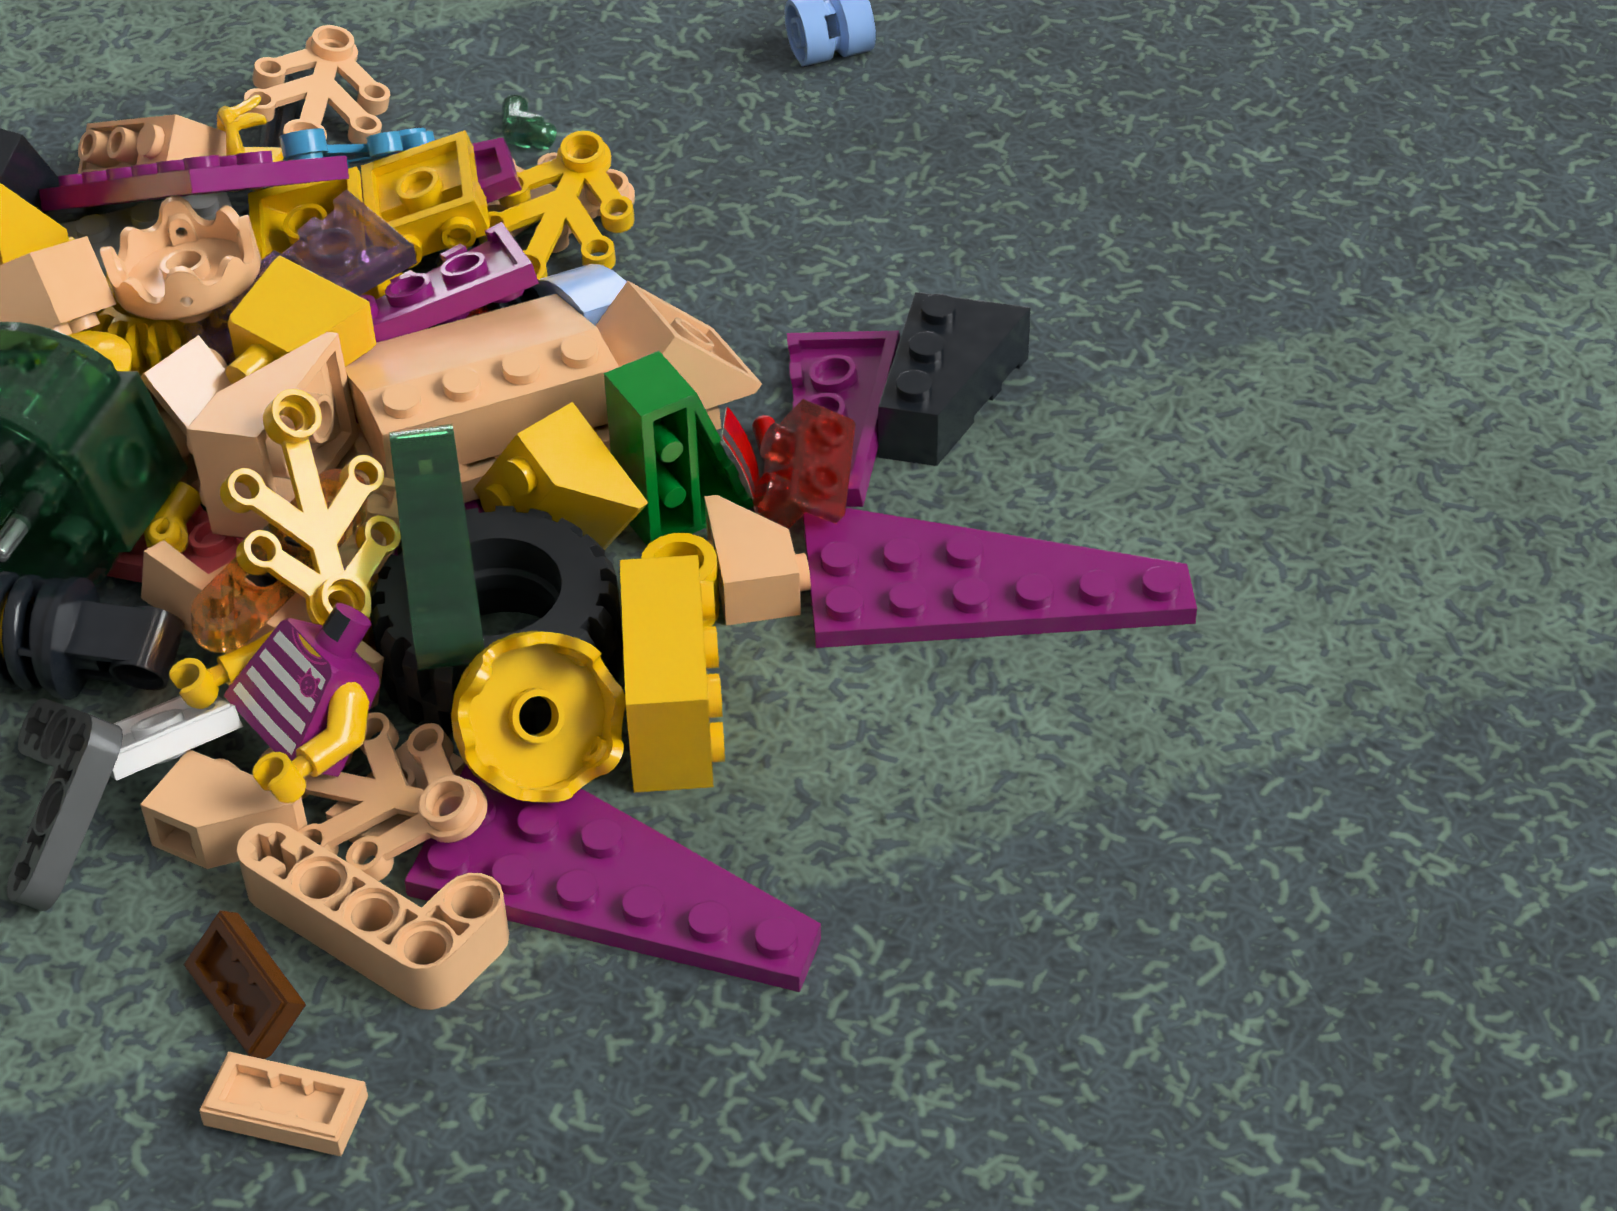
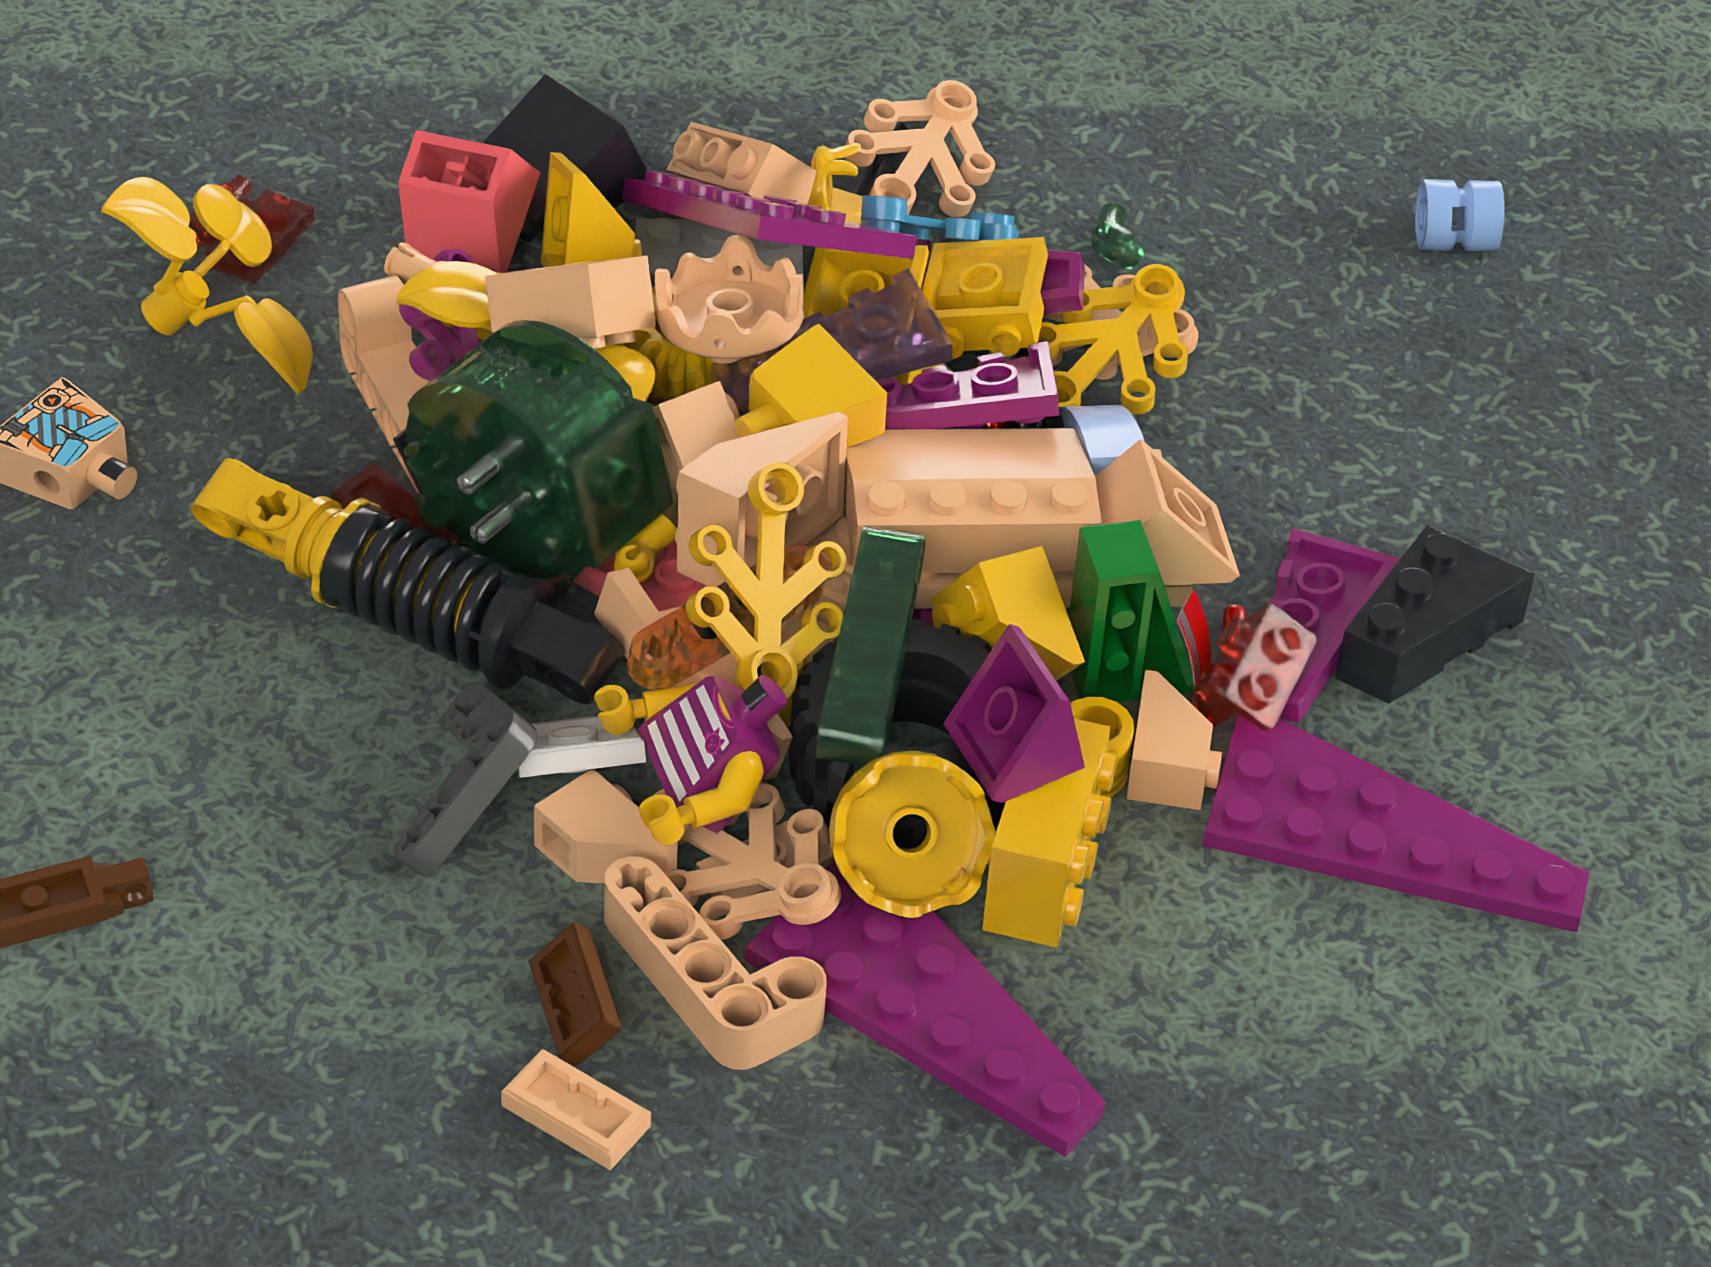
camera: 15 degrees right, 0 degrees up
(607, 574) = (1015, 722): none -> magenta slope

